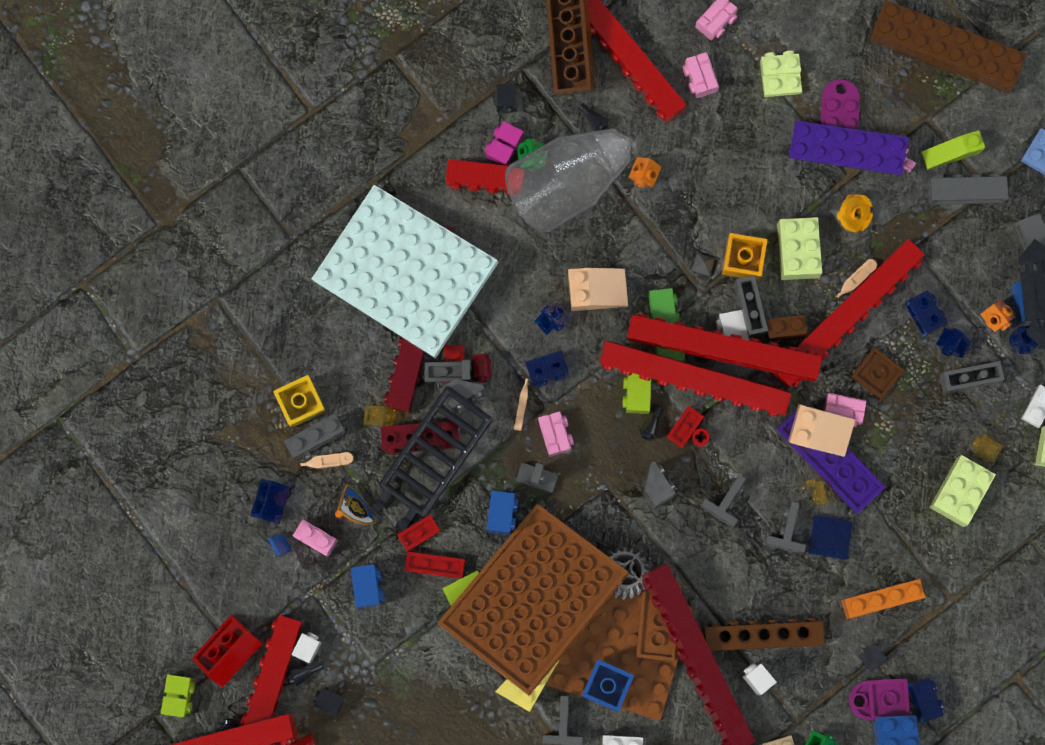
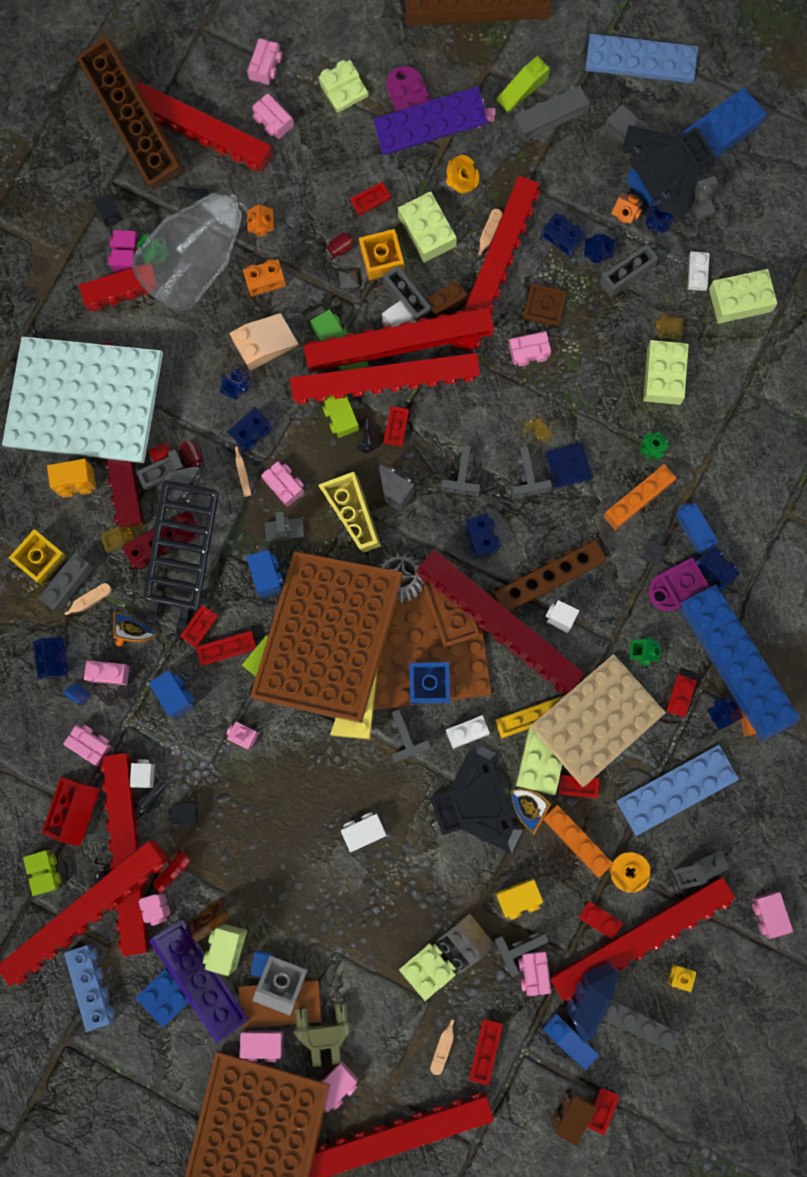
camera: 20 degrees left, 0 degrees up
(269, 597) = (87, 744): none -> bright pink brick
(362, 341) = (72, 478): none -> light orange brick
(413, 653) = (242, 735): none -> bright pink brick
(608, 483) = (352, 509): none -> light yellow wedge
(624, 228) = (264, 277): none -> orange brick
(696, 433) = (419, 431): red bush -> none
(710, 229) = (340, 245): none -> dark red brick
(718, 568) = (482, 535): none -> clear blue brick
(758, 196) = (370, 198): none -> red plate
(821, 430) = (517, 373): light nougat slope -> none
(843, 474) = (537, 396): dark purple plate -> none
(912, 559) = (654, 452): none -> green brick
(923, 652) = (696, 527): none -> blue brick

